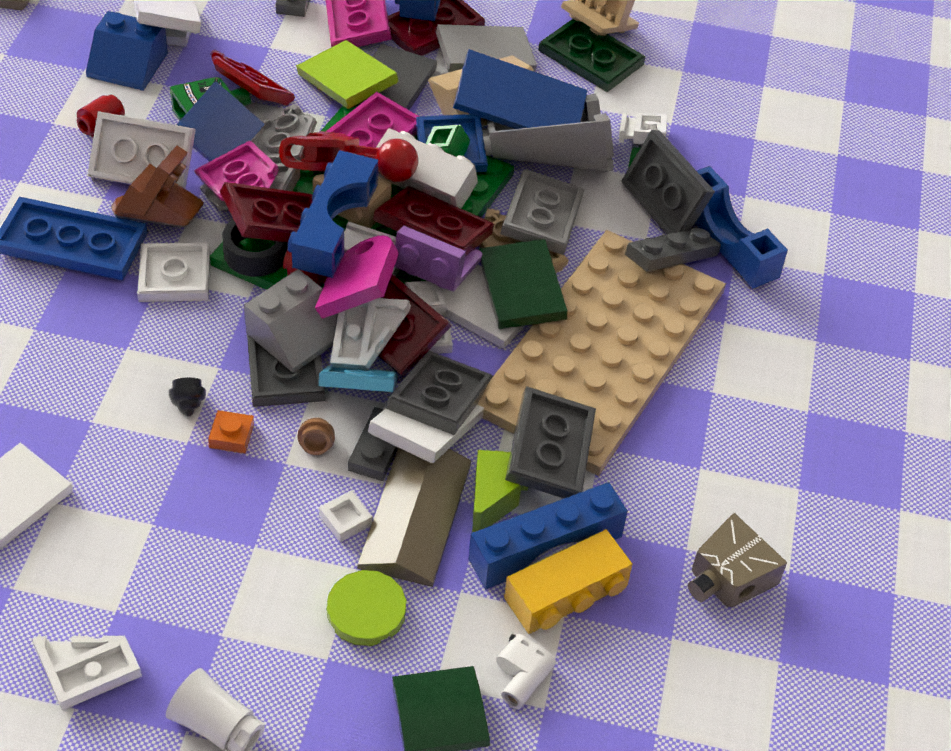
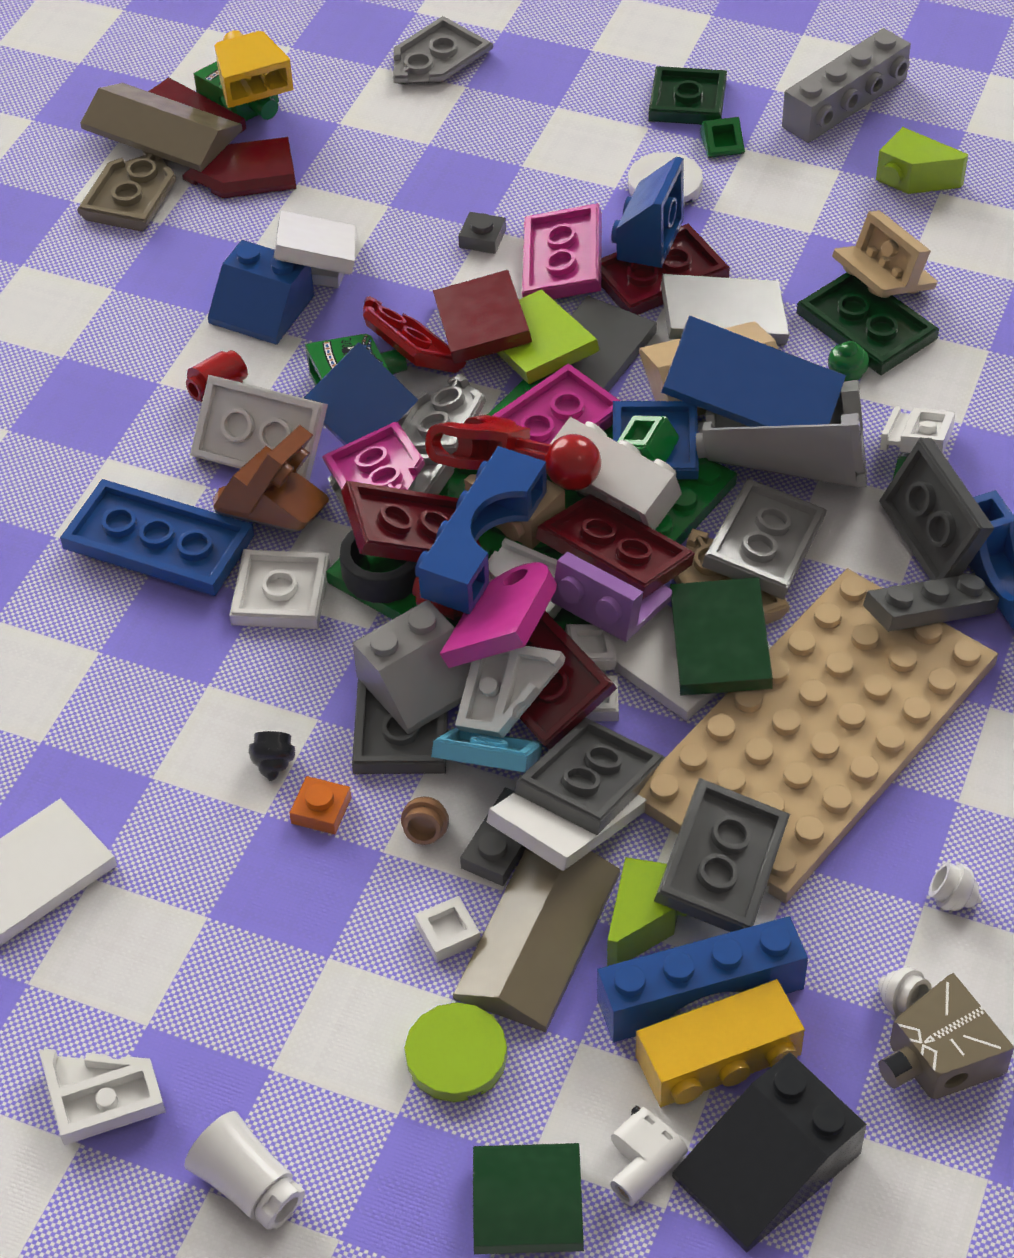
camera: 15 degrees right, 0 degrees up
(304, 61) = (482, 316): none -> dark red tile
(584, 78) = (849, 360): none -> green plate
(619, 657) = (771, 1152): none -> black slope
(696, 530) = (902, 989): none -> white plate
(722, 452) = (954, 887): none -> white plate

